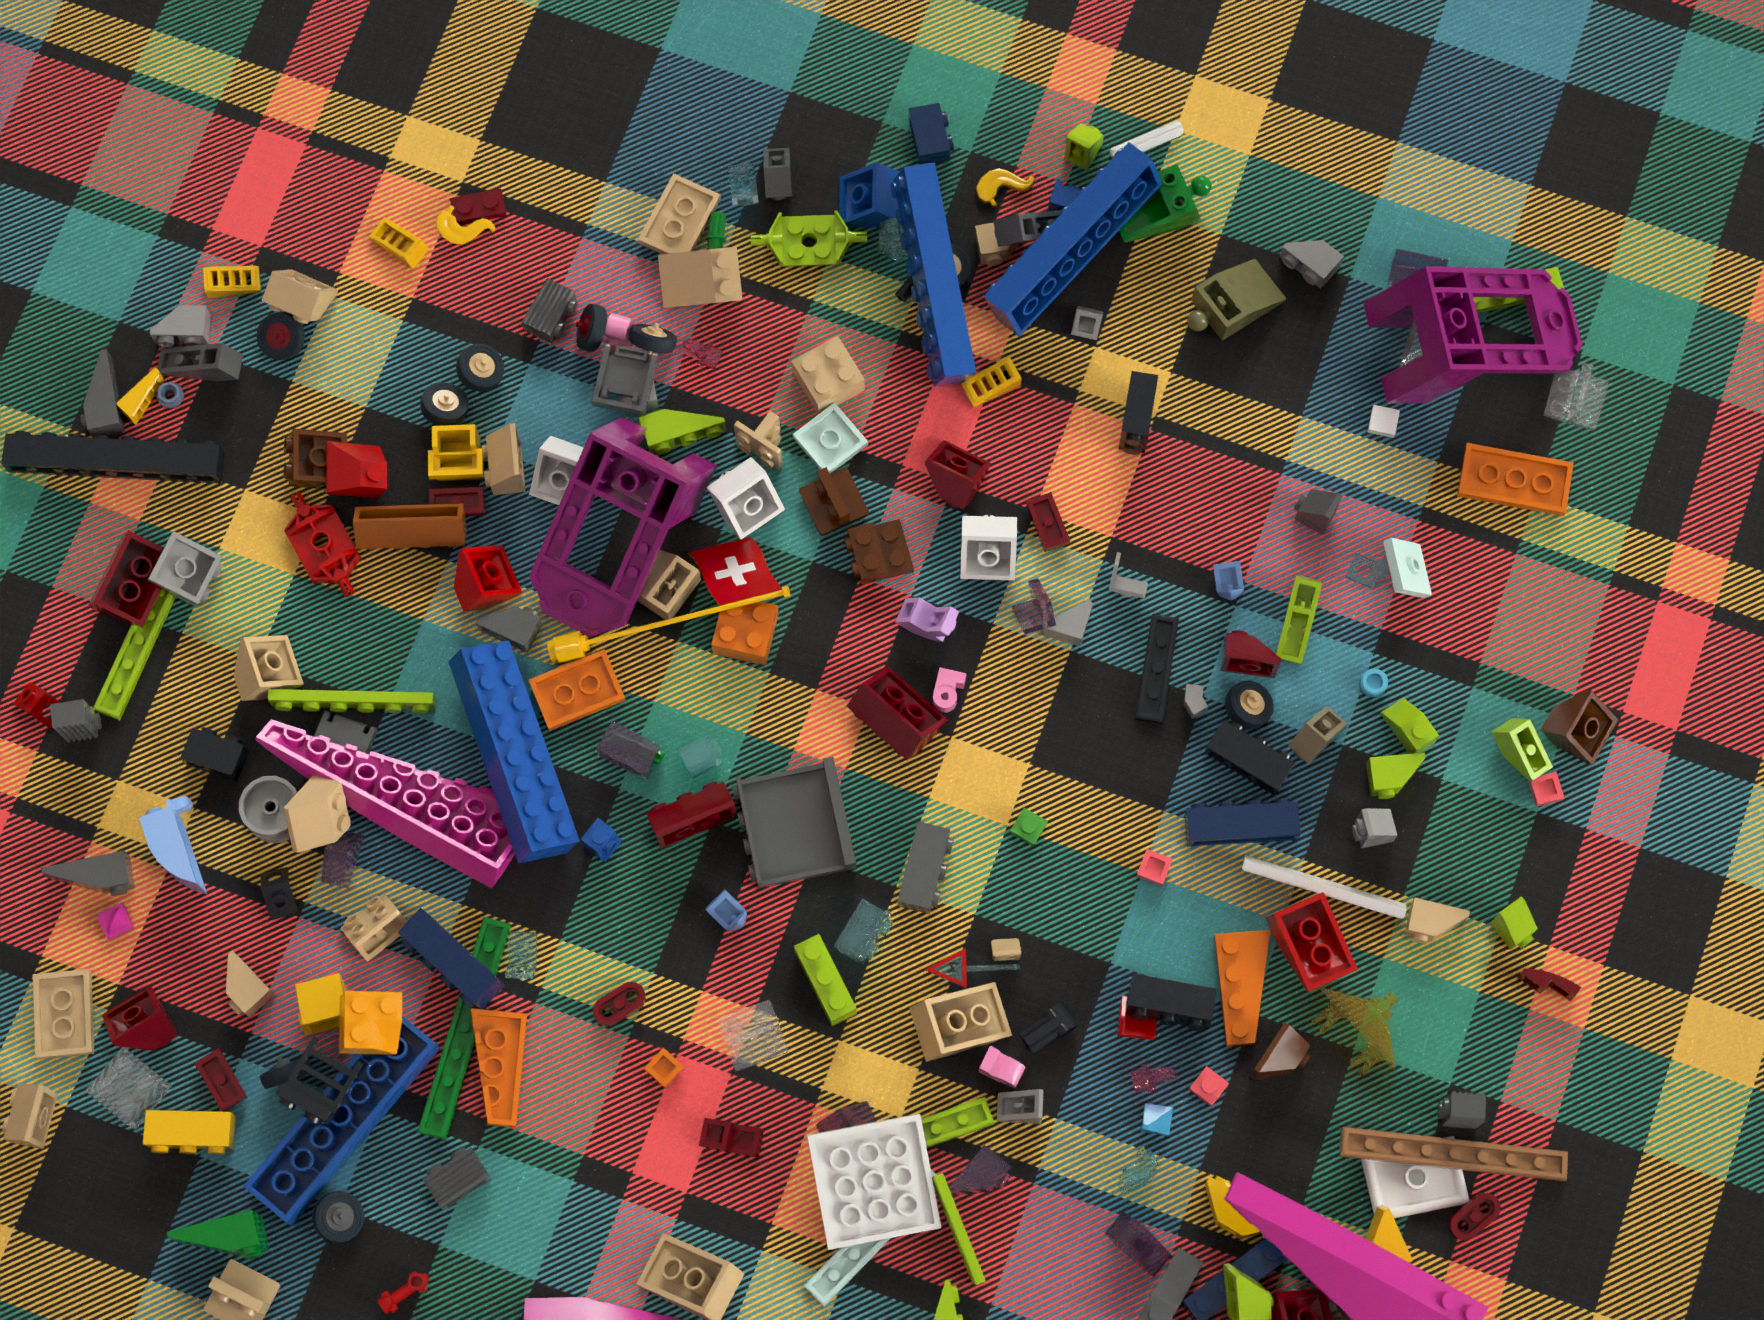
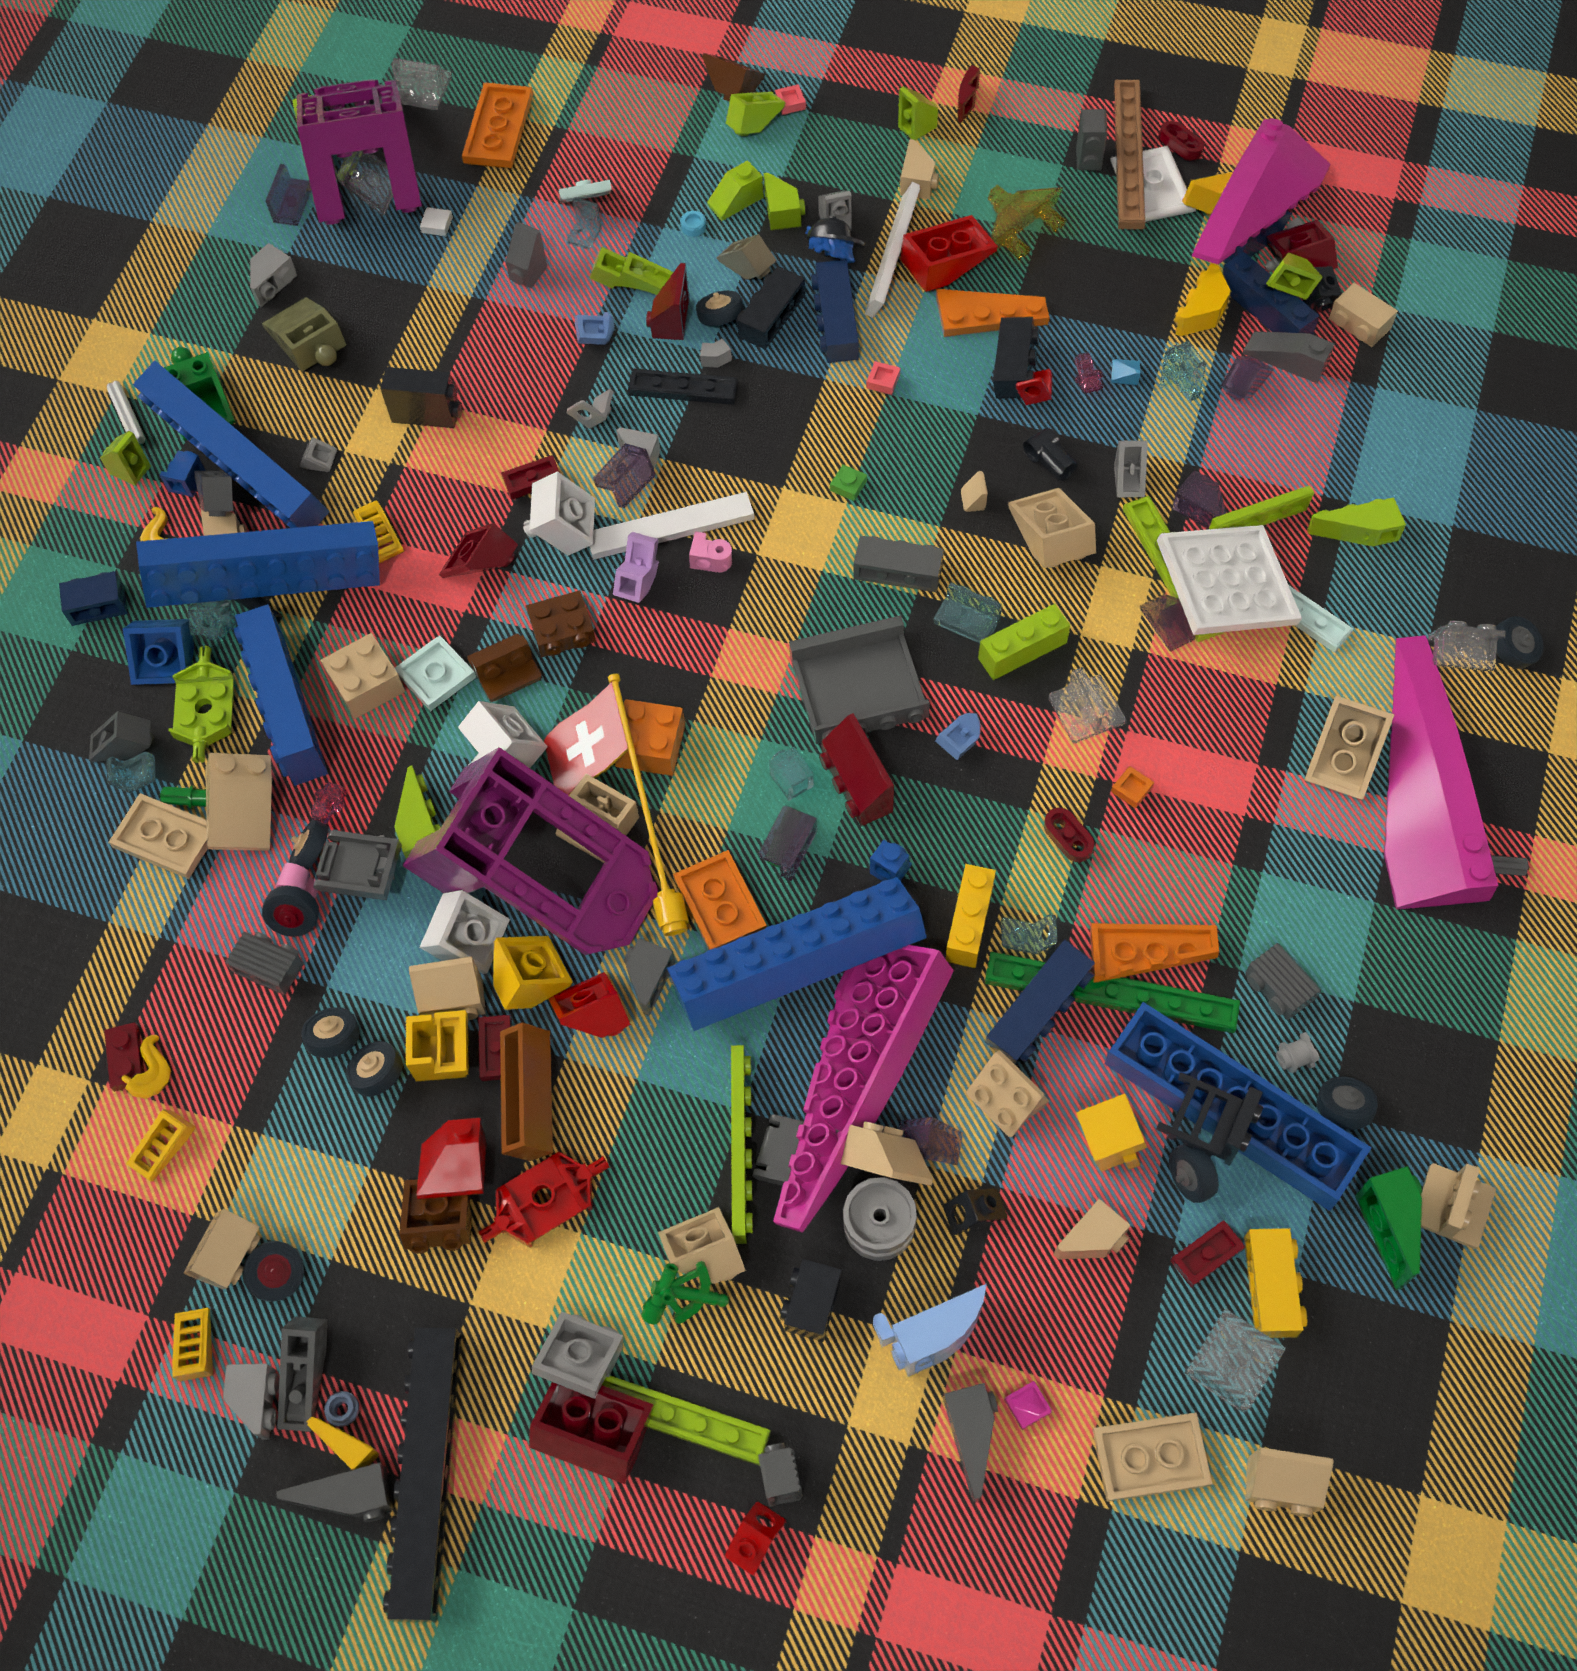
camera: 90 degrees left, 10 degrees down
(140, 1022) = (1151, 1358): dark red slope -> none
(226, 648) = (669, 1288): none -> green piece
(370, 1022) = (1135, 1063): light orange slope -> none
(387, 1180) = (1297, 1054): none -> light grey brick
(416, 1282) = (1403, 1015): red bar -> none
(520, 525) = (527, 971): none -> yellow slope
(542, 906) = (970, 915): none -> yellow brick
(731, 1137) = (1196, 721): dark red slope -> none
(762, 441) = (436, 727): tan bracket -> none
(806, 304) = (279, 696): none -> blue brick
(896, 712) = (738, 595): dark red slope -> none
(955, 968) = (996, 539): piece -> none
(986, 655) = (674, 523): none -> white tile
(1001, 1068) = (1095, 489): bright pink leg -> none
(1208, 1086) = (1089, 332): coral plate -> none
(1283, 1055) = (1056, 275): reddish brown slope -> none
(1328, 821) = (834, 238): none -> hair

